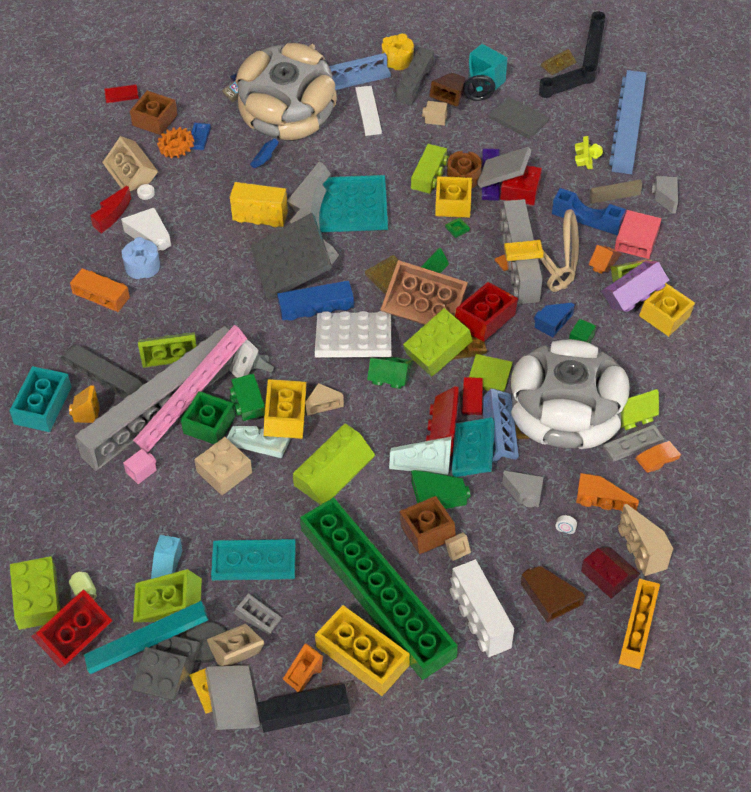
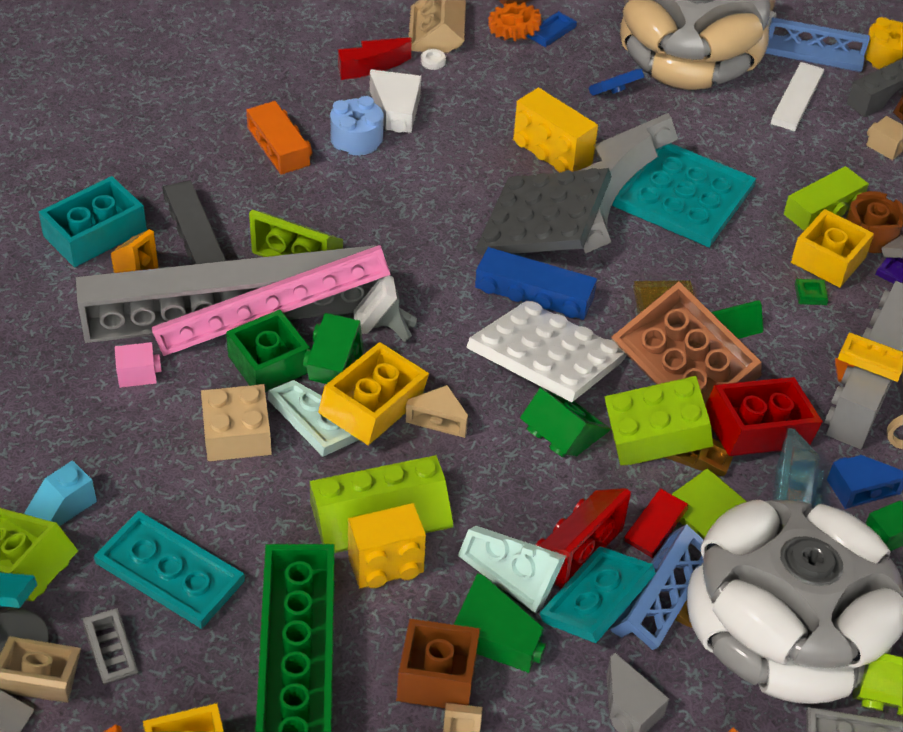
camera: 30 degrees right, 5 degrees down
(357, 483) = (386, 546): none -> yellow brick
(522, 334) = (797, 471): none -> clear light blue slope

